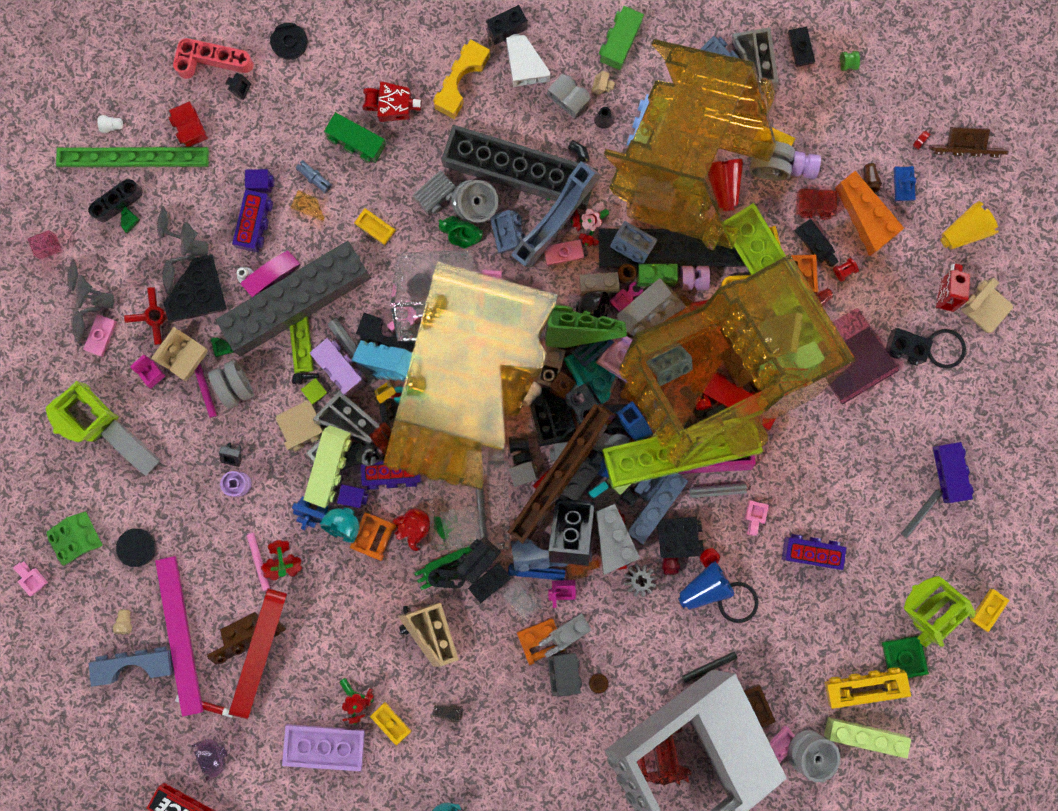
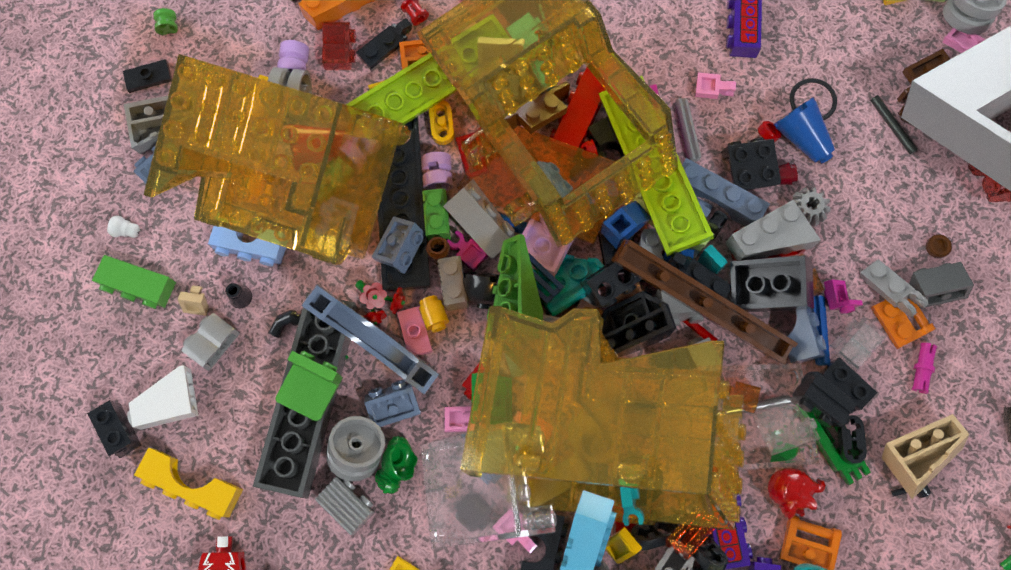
camera: 85 degrees left, 10 degrees down
(488, 500) = (750, 394): none -> clear orange plate
(499, 650) = (924, 368): none -> dark pink pin
(522, 166) = (308, 386): none -> bright green bracket
(575, 267) = (433, 313): none -> yellow brick
(668, 25) = (120, 227): none -> white piece

